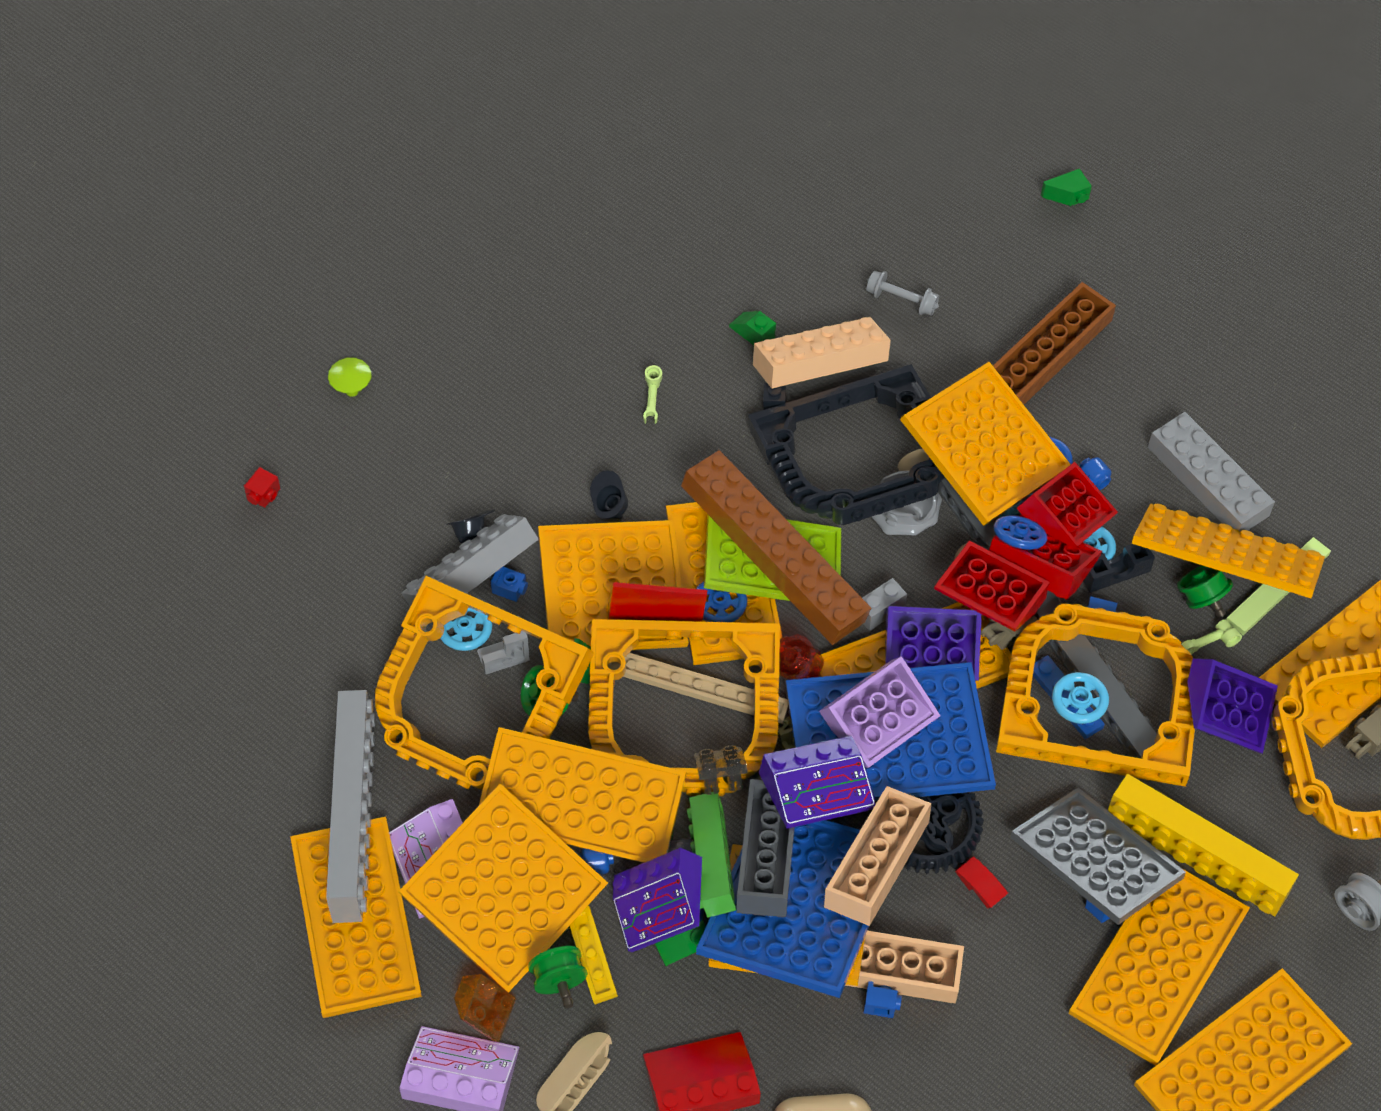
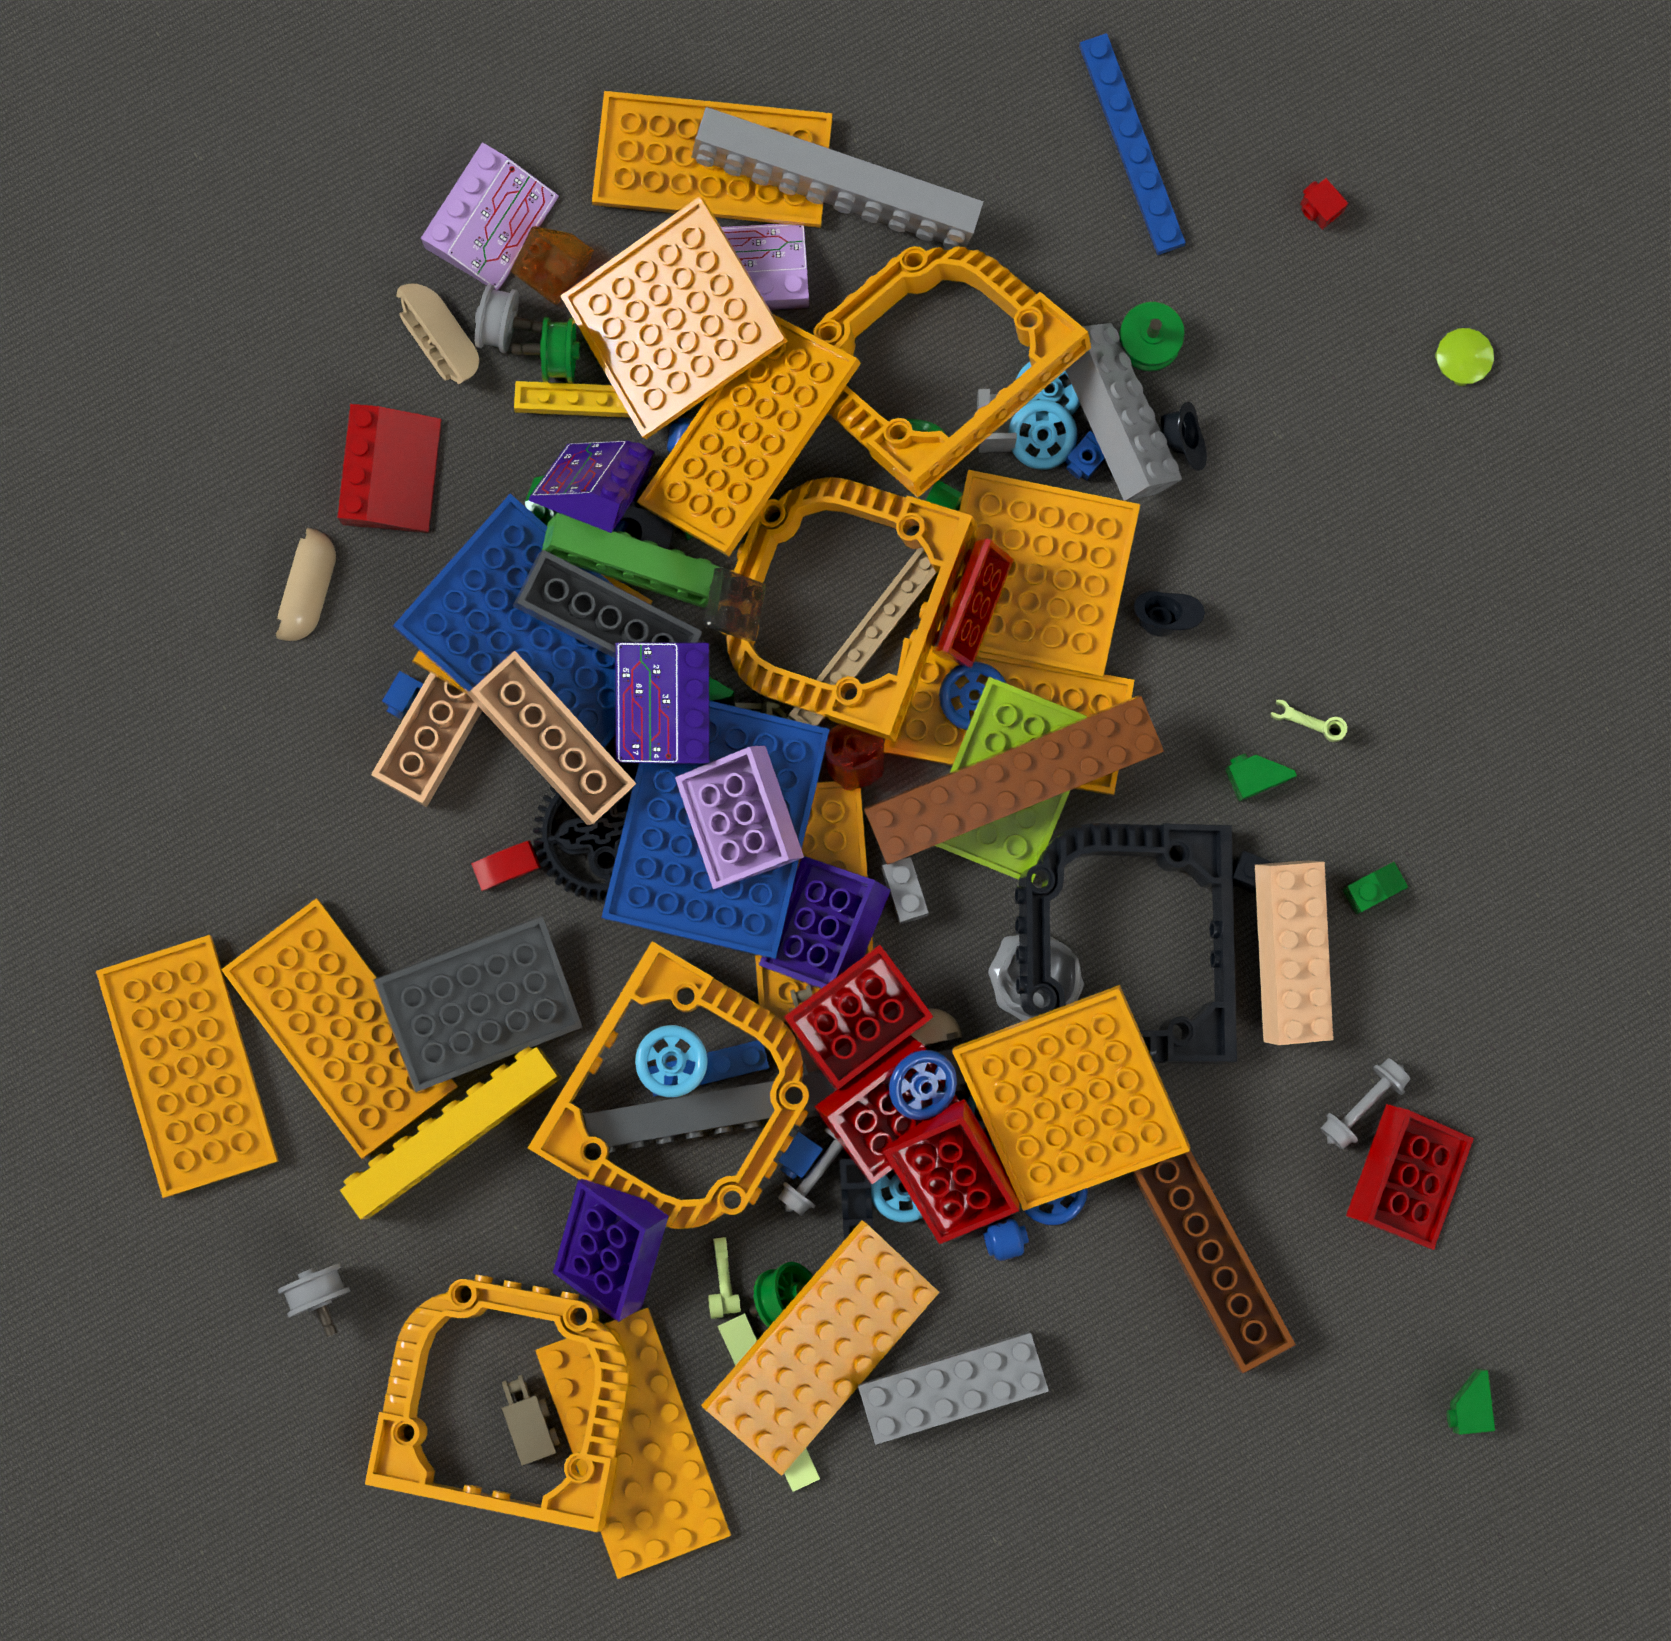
camera: 110 degrees right, 25 degrees up
(249, 627) = (1132, 144): none -> blue plate
(401, 563) = (1151, 336): none -> green wheel
(501, 602) = (1055, 414): none -> medium azure plate
(547, 1024) = (498, 318): none -> light grey wheel
(706, 415) = (1256, 775): none -> green slope
(939, 260) = (1410, 1176): none -> red slope
(1132, 606) = (795, 1198): none -> light grey piece

